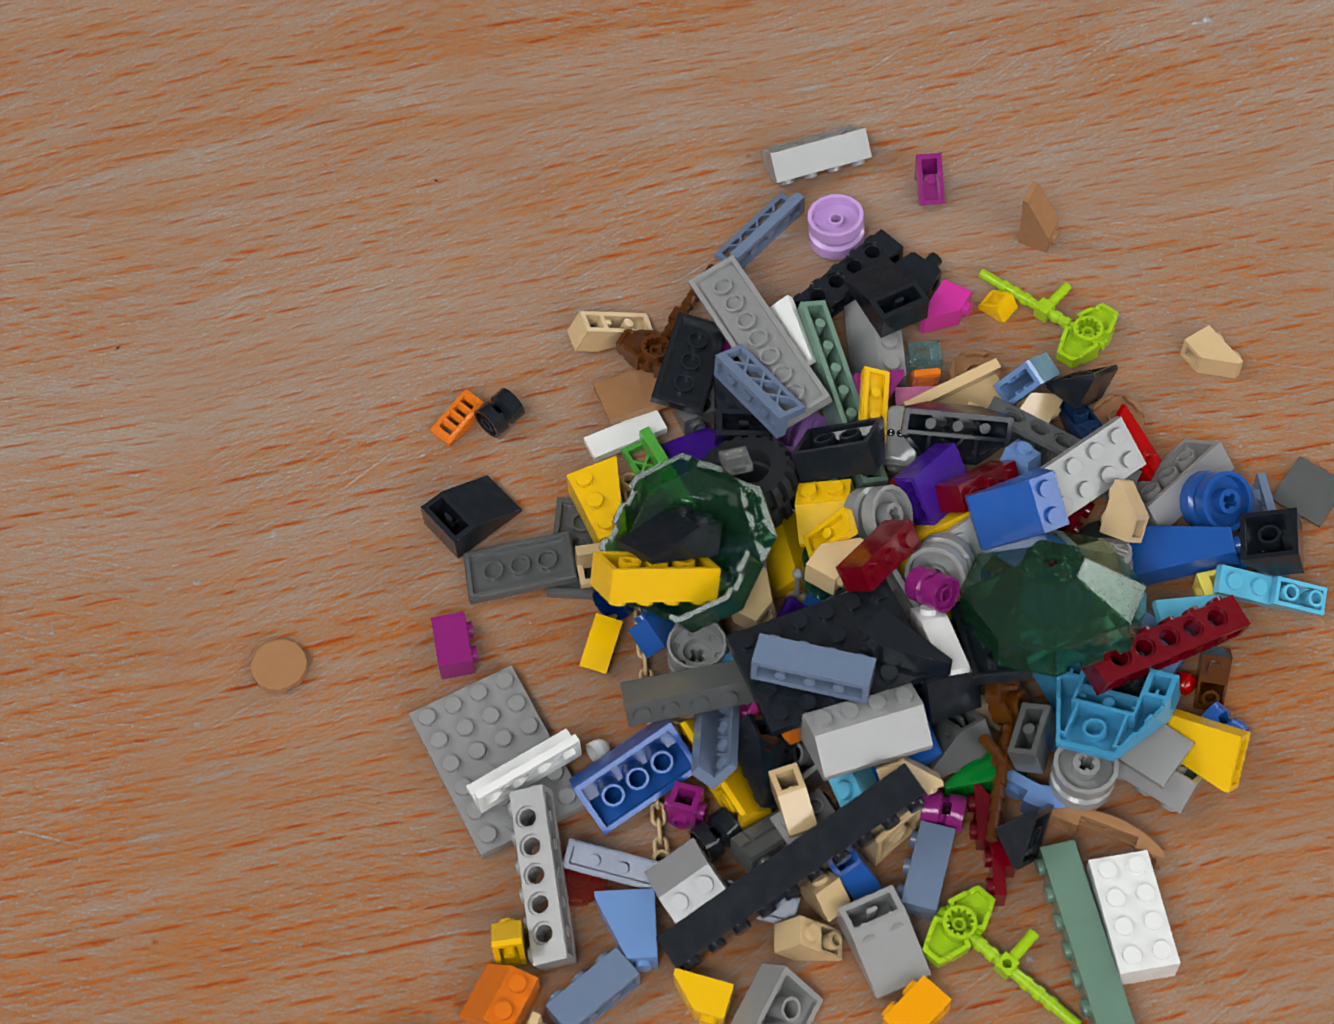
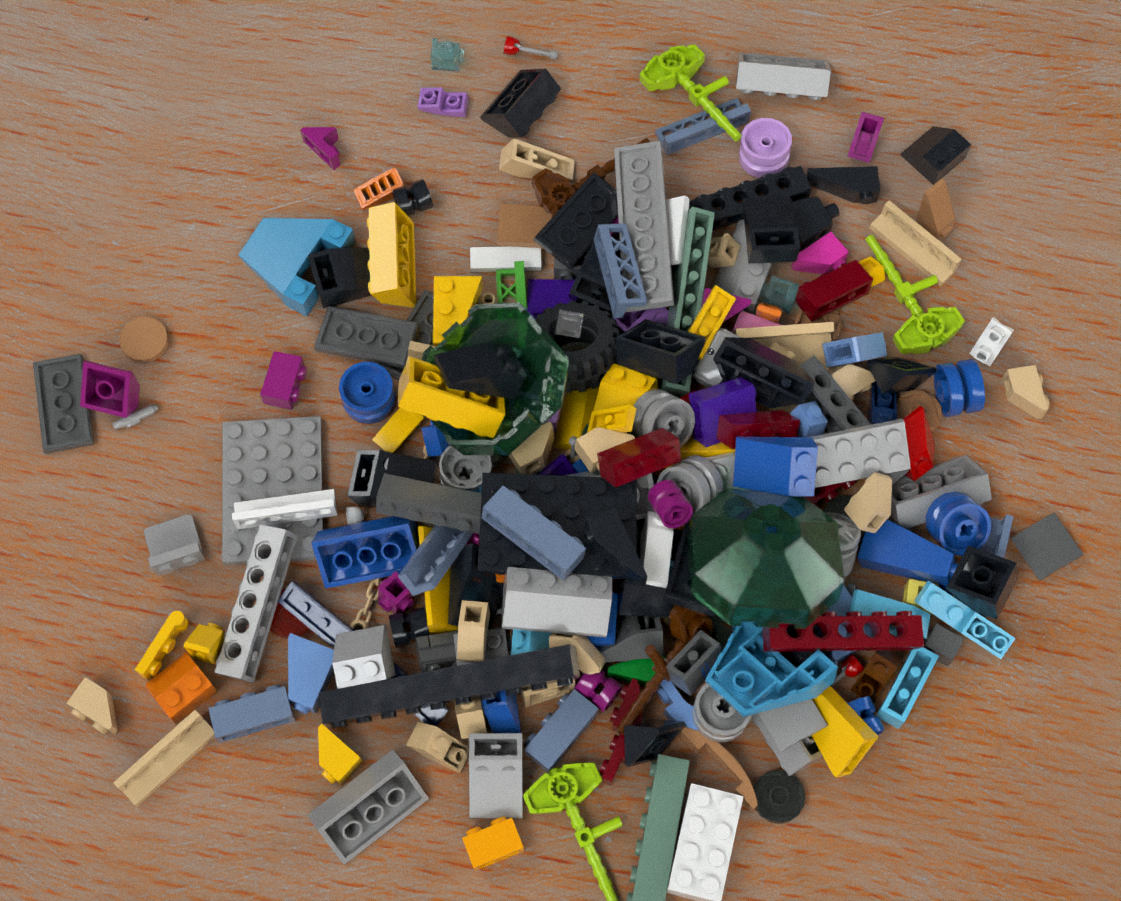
camera: 20 degrees right, 10 degrees up
(222, 767) = (58, 392): none -> dark grey tile
(271, 726) = (109, 389): none -> magenta slope
(309, 749) = (135, 417): none -> light grey piece
(372, 396) = (321, 142): none -> magenta slope
(389, 518) = (281, 251): none -> dark azure wedge
(419, 859) = (173, 545): none -> light grey bracket
(459, 964) = (162, 644): none -> yellow plate
(462, 262) = (446, 55): none -> clear light blue brick
(483, 310) = (441, 103): none -> medium lavender slope
(507, 475) = (391, 256): none -> yellow slope
(527, 228) = (513, 46): none -> hinge
(551, 619) = (367, 392): none -> blue wheel
(564, 277) = (521, 102): none -> black slope
(601, 694) = (372, 465): none -> black slope
(709, 182) = (678, 67): none -> lime bar
(850, 338) = (717, 254): none -> tan brick
(935, 229) = (848, 183): none -> black slope
(975, 333) = (833, 290): none -> dark red brick
(1005, 168) = (937, 152): none -> black slope
(1030, 263) = (914, 245): none -> tan fence
(1148, 374) = (959, 387): none -> blue wheel
(1154, 321) = (991, 342): none -> white hips
(1181, 839) = (779, 796): none -> pearl dark grey tile
(1249, 677) = (907, 686): none -> medium azure brick
(1264, 625) = (943, 643): none -> dark grey brick

